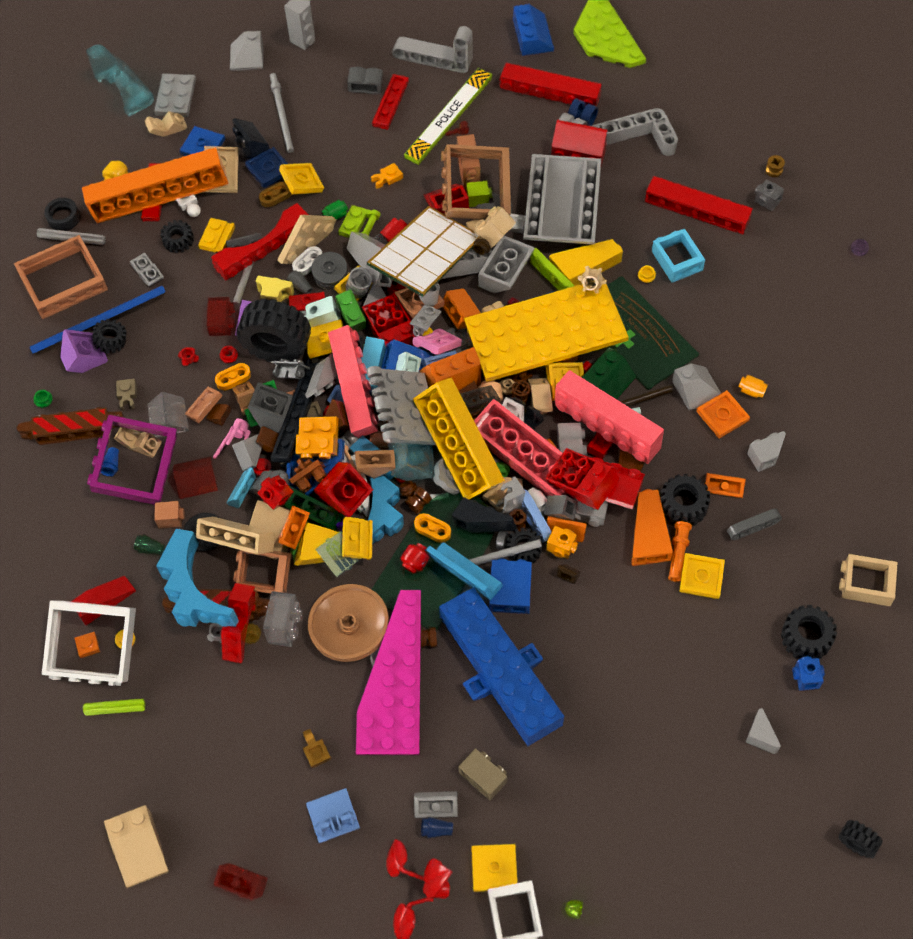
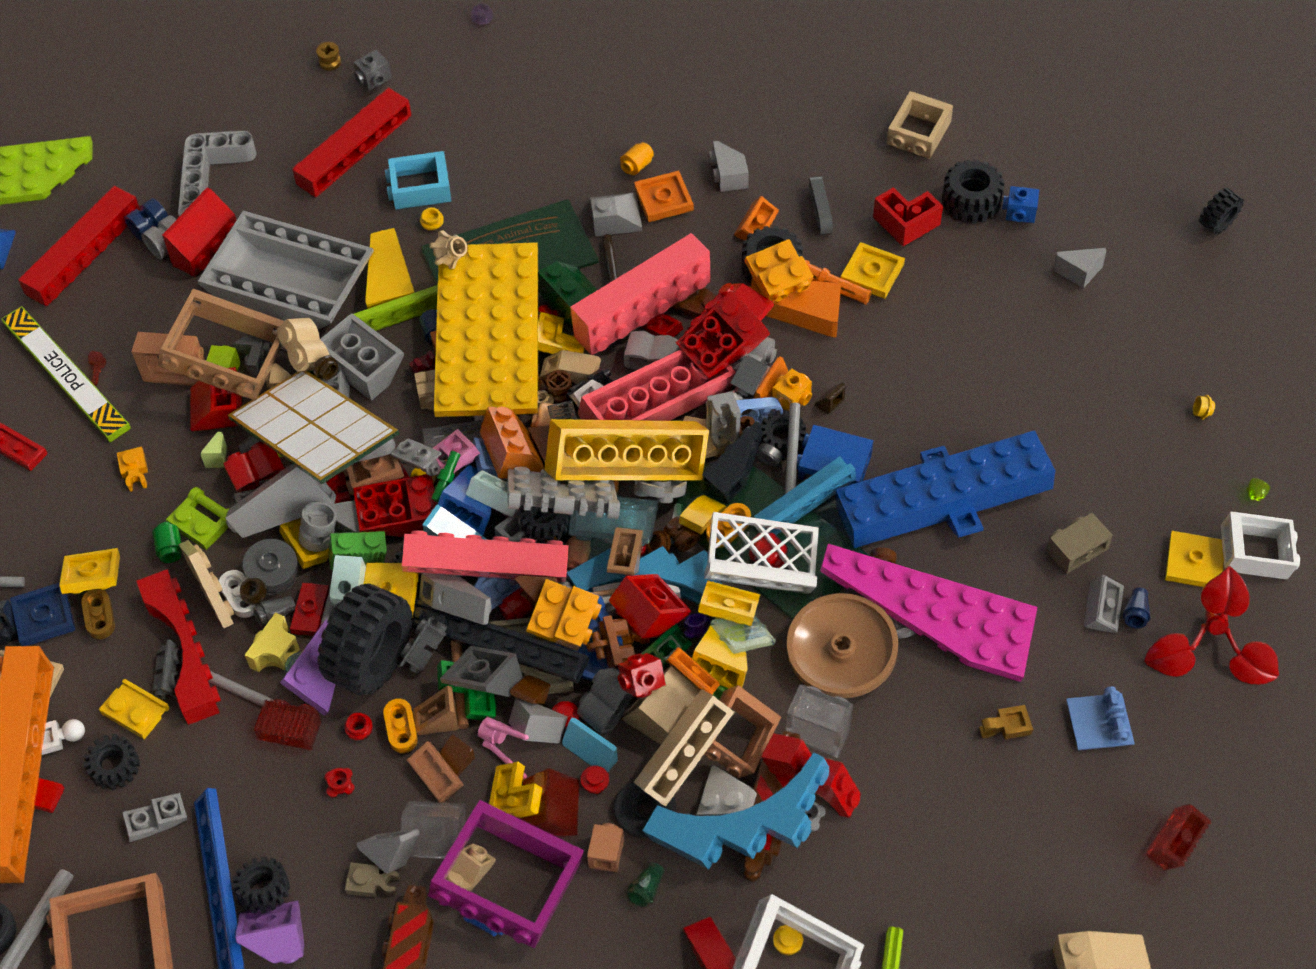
camera: 75 degrees left, 5 degrees down
(144, 393) = (389, 850): none -> light grey slope
(188, 450) = (509, 793): none -> yellow plate
(215, 576) = (724, 794): none -> white wing
(218, 497) = (595, 779): none -> red plate
(304, 264) = (249, 586): none -> dark brown plate
(387, 550) = (764, 575): none -> white fence
(409, 212) = (215, 452): none -> yellowish green slope
(412, 339) = (446, 475): none -> green bar
(435, 506) = (699, 513): none -> yellow slope
(459, 306) = (410, 419): orange brick -> none
(646, 854) = (1203, 406): none -> yellow plate
(661, 503) = (779, 271): none -> light orange plate
(758, 588) = (907, 219): none -> red brick

